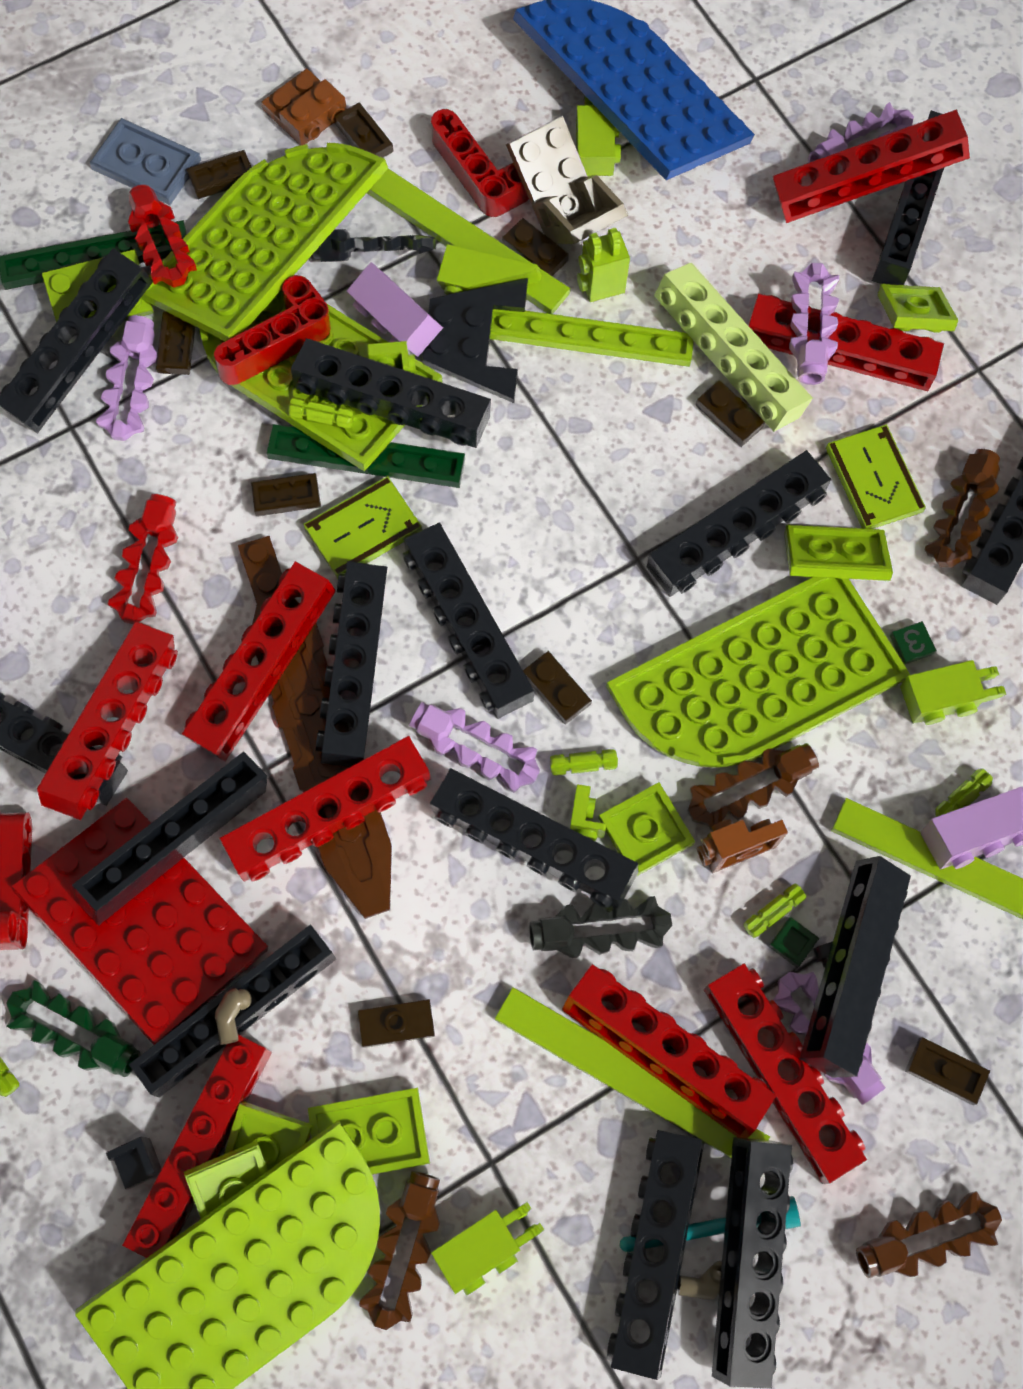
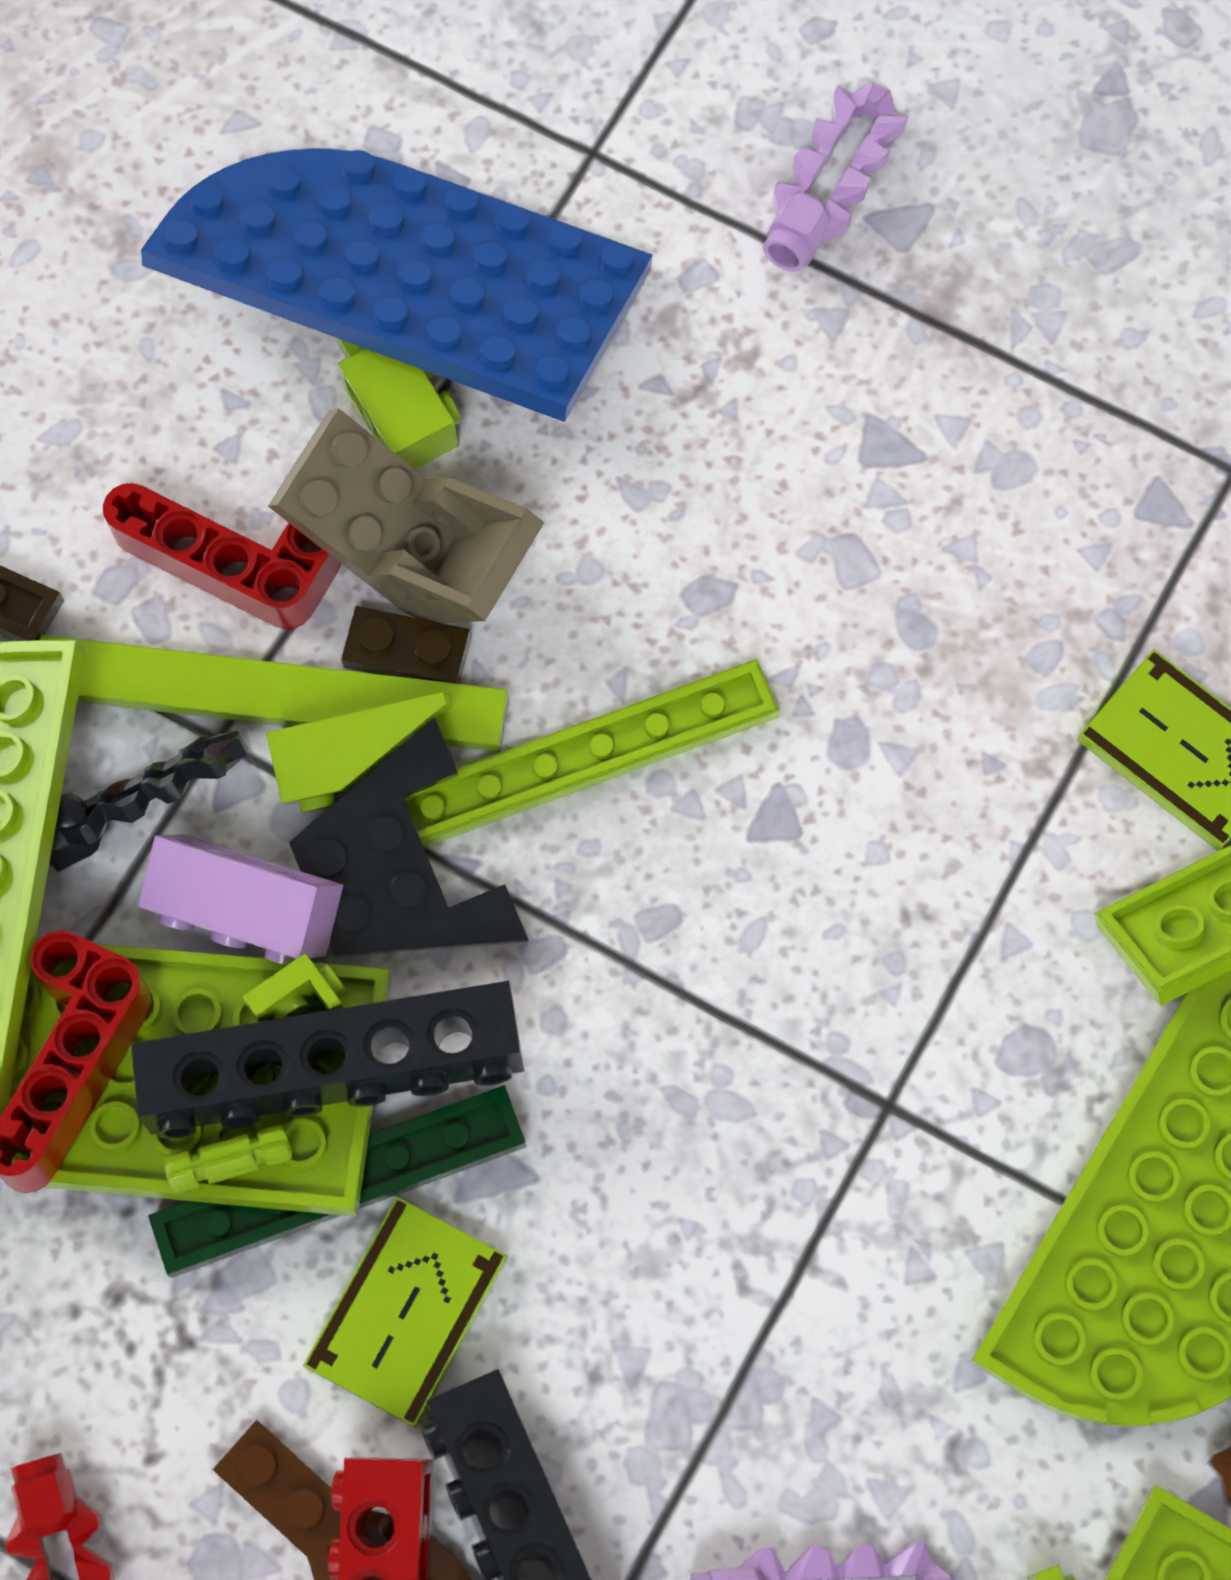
camera: 25 degrees left, 0 degrees up
(285, 494) = (241, 1328): dark brown plate -> none
(435, 546) = (553, 1277): black brick -> none
(557, 687) = (892, 1411): dark brown plate -> none
(583, 762) = (1012, 1518): lime axle -> none
(603, 266) = (548, 629): lime hinge -> none
(730, 413) = (892, 765): dark brown plate -> none
(732, 346) = (834, 651): yellowish green brick -> none
(800, 473) = (1072, 813): black brick -> none
(813, 355) = (982, 602): lavender sword -> none
(856, 353) = (867, 592): red brick -> none
(872, 166) = (916, 219): red brick -> none
(907, 227) = (982, 240): black brick -> none
(917, 308) = (1090, 424): lime plate -> none

